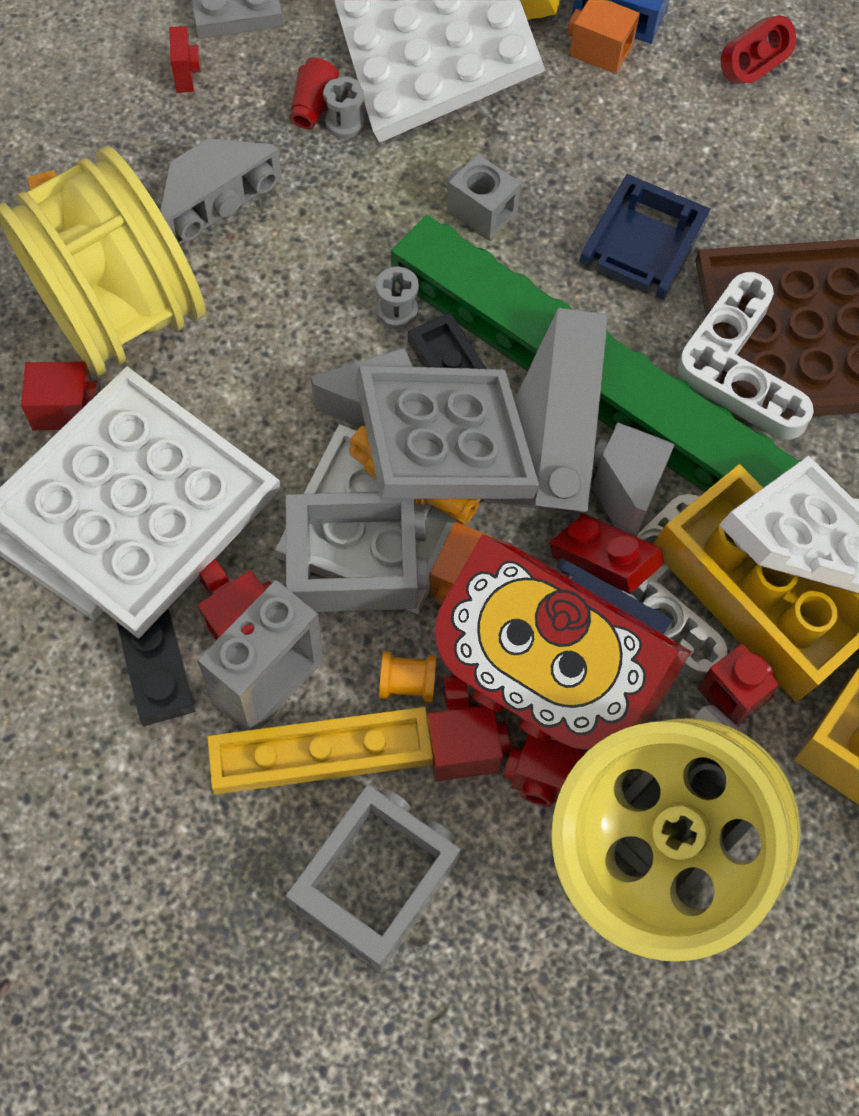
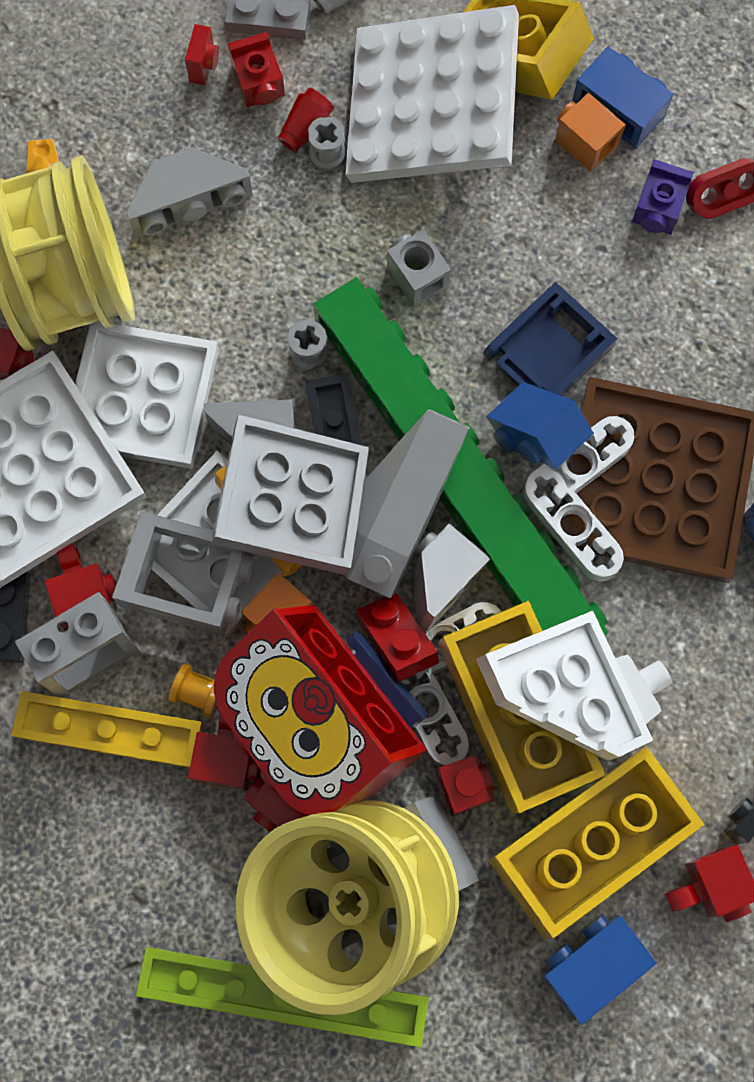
camera: 20 degrees right, 10 degrees up
(242, 384) = (148, 390): none -> white plate
(245, 59) = (256, 70): none -> red brick
(338, 922) = (74, 877): light grey window -> none
(623, 984) = (240, 991): none -> lime plate
(673, 301) = (539, 425): none -> blue brick
(699, 72) = (662, 197): none -> dark purple brick

